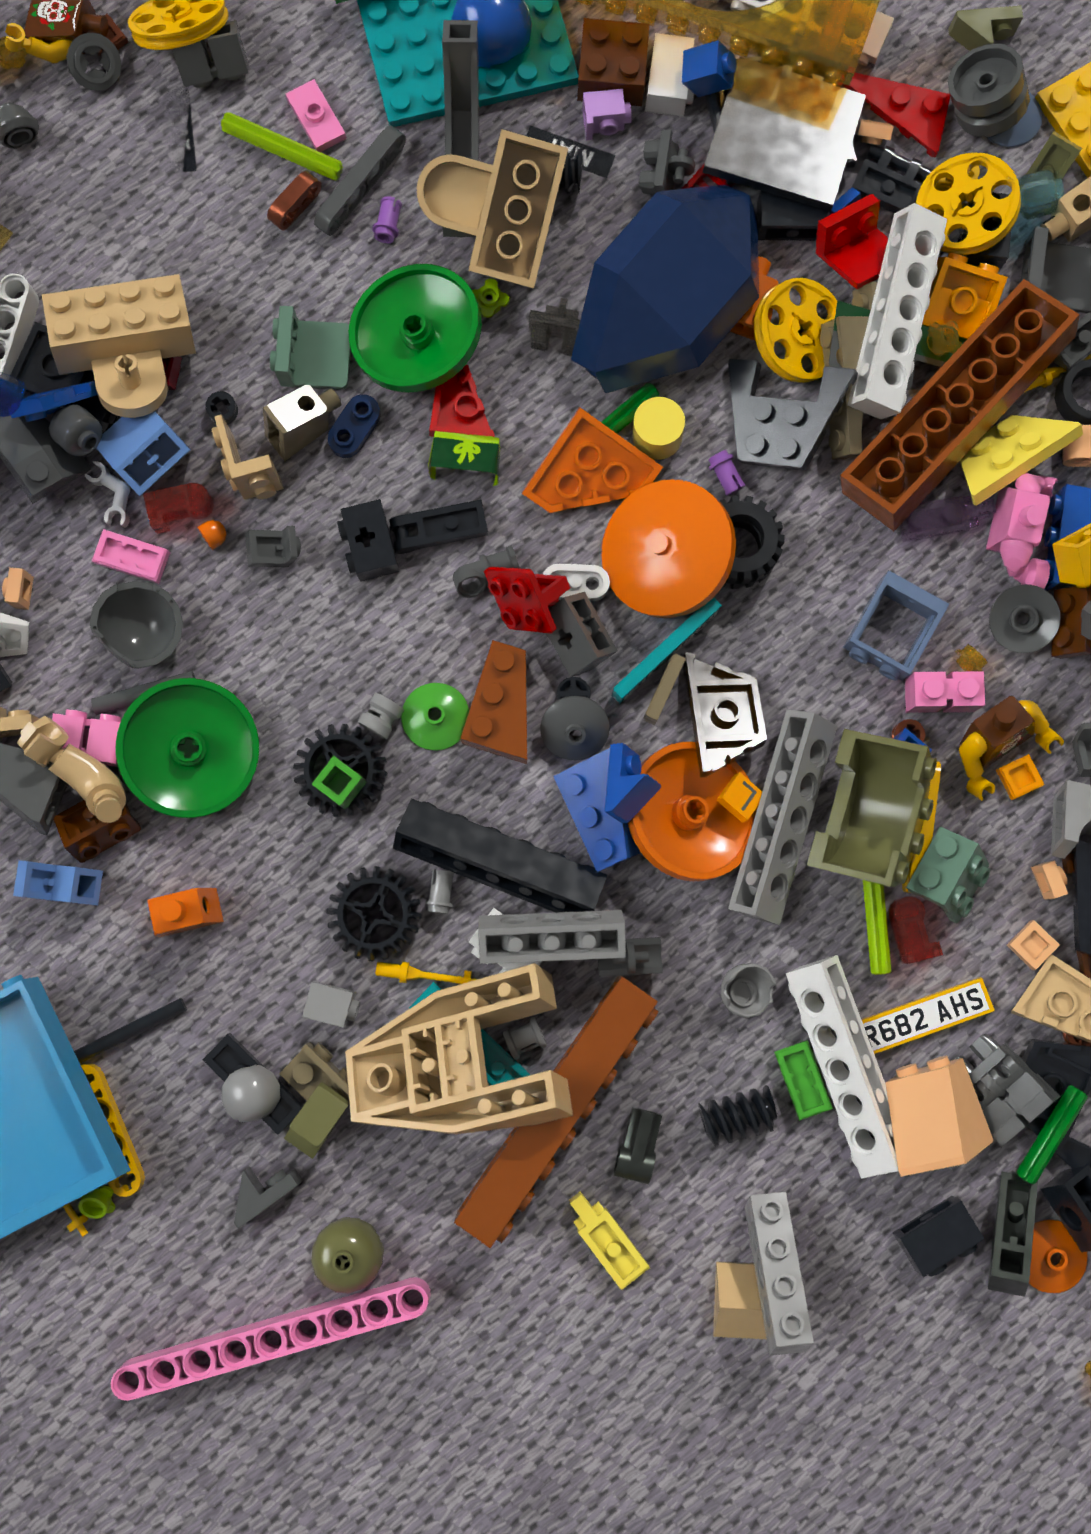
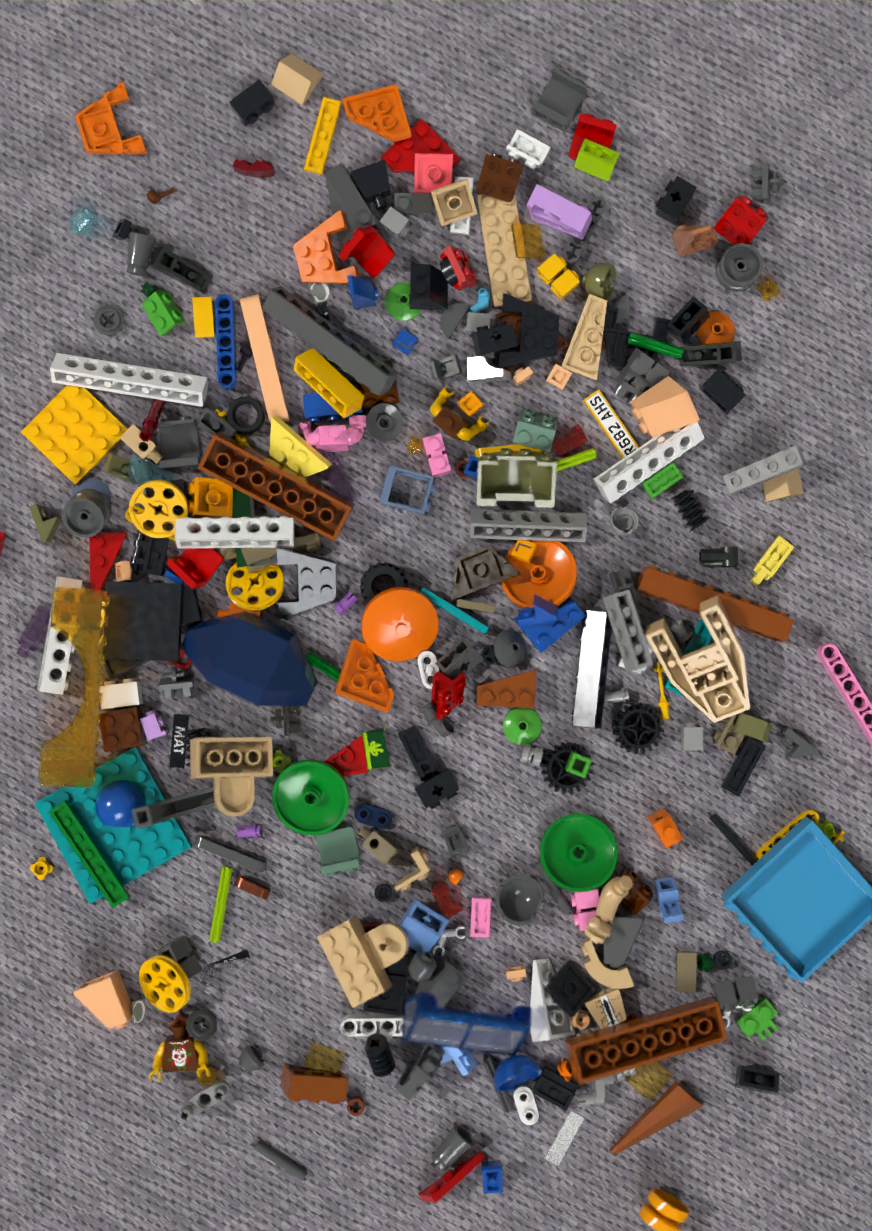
camera: 100 degrees left, 5 degrees up
(48, 402) = (408, 983): blue wing -> none
(250, 1093) = (749, 765): light grey hair -> none
(316, 116) = (197, 890): bright pink plate -> none
(358, 1243) = (816, 692): olive cylinder -> none
(658, 427) = (331, 647): light yellow piece -> none
(708, 68) = (118, 673): blue brick -> none
(937, 342) = (239, 507): clear yellow plate -> none

